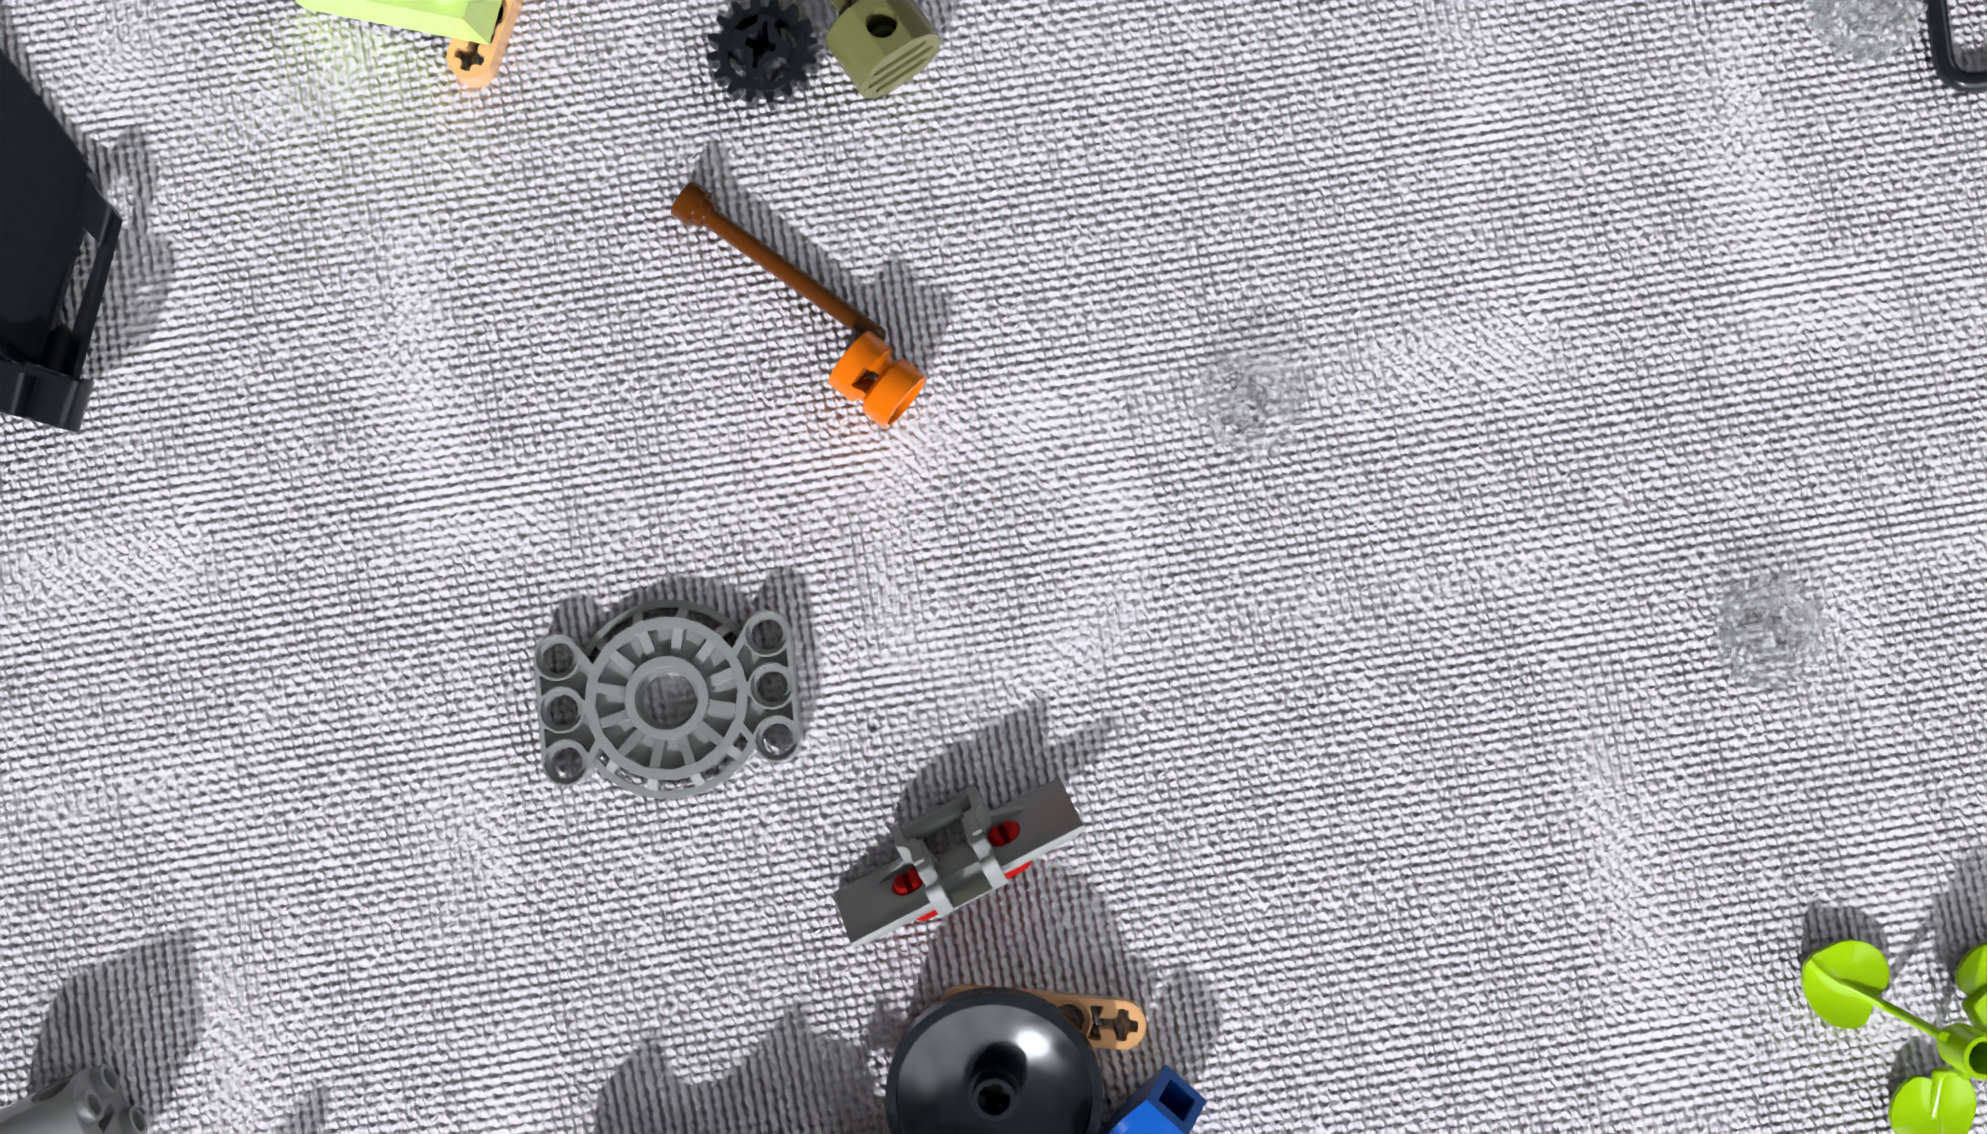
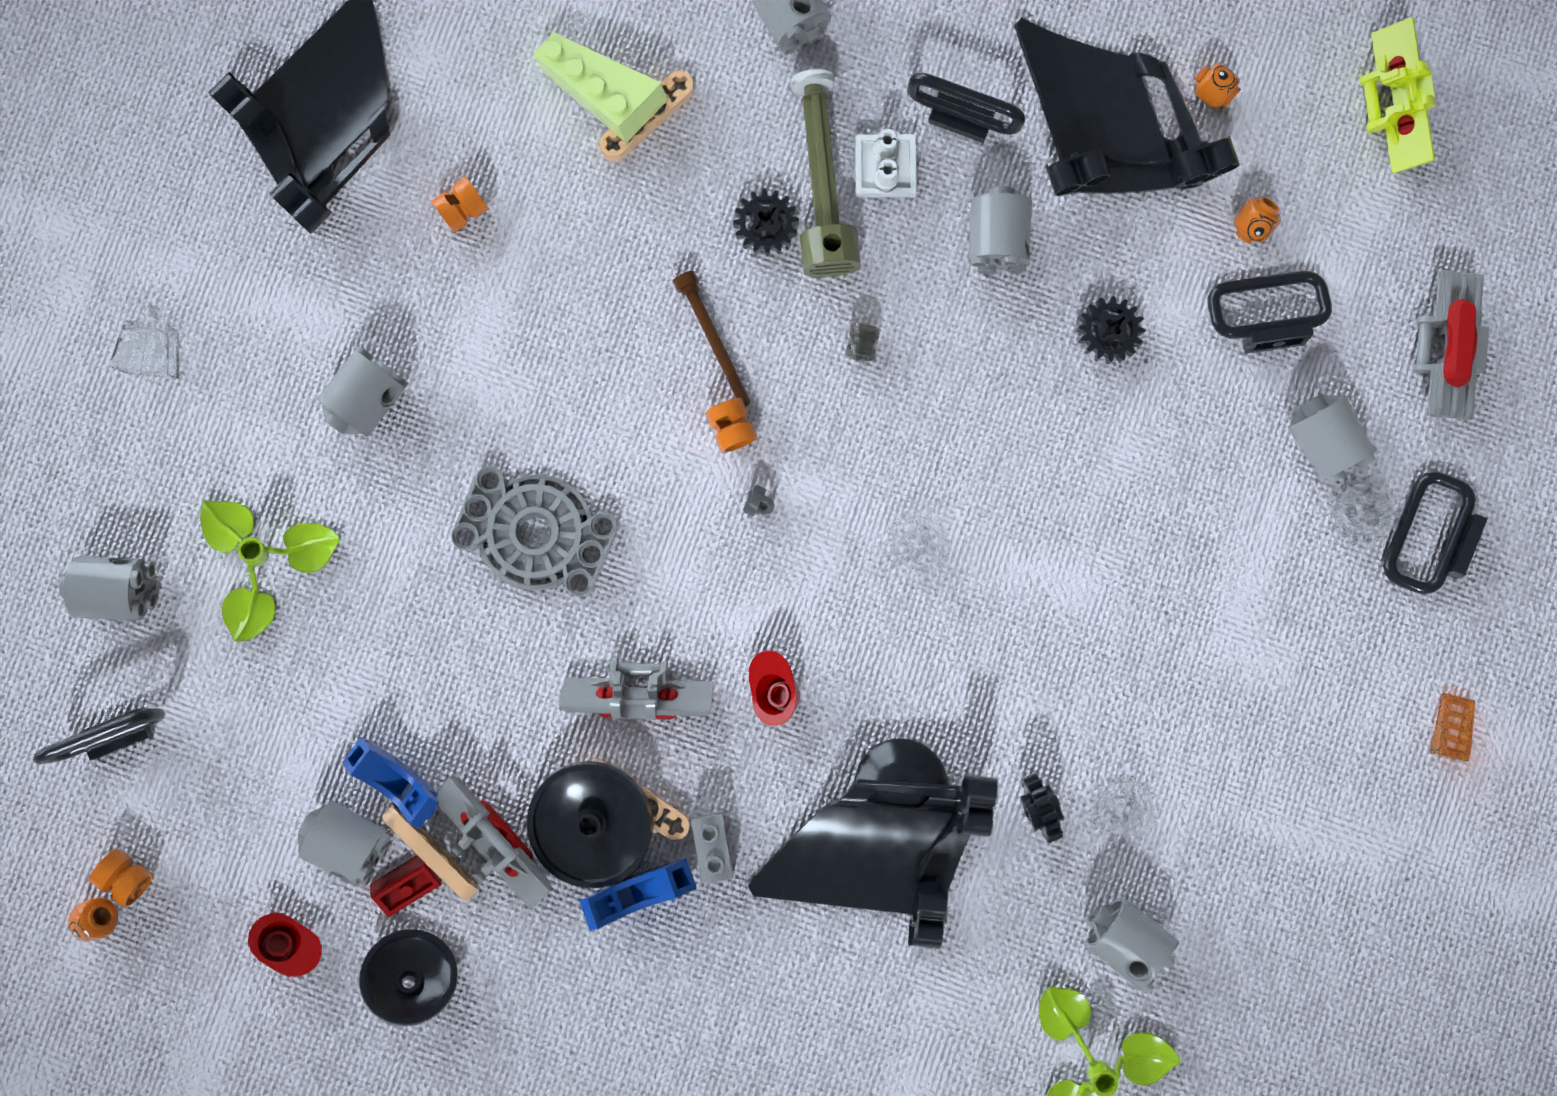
camera: 30 degrees right, 0 degrees up
(195, 949) = (225, 527): none -> lime plant
(286, 269) = (460, 205): none -> orange wheel
(287, 634) = (360, 394): none -> light grey cylinder
(972, 472) = (755, 498): none -> dark grey tile
(1004, 152) = (862, 342): none -> clear smoke wheel
(1156, 738) = (773, 688): none -> red piece
(1196, 1027) = (712, 847): none -> light grey brick
(1385, 771) = (901, 761): none -> black dish
(1457, 891) = (883, 852): none -> black panel
(1653, 697) = (1042, 808): none -> black gear
(1894, 824) = (1130, 942): none -> light grey cylinder

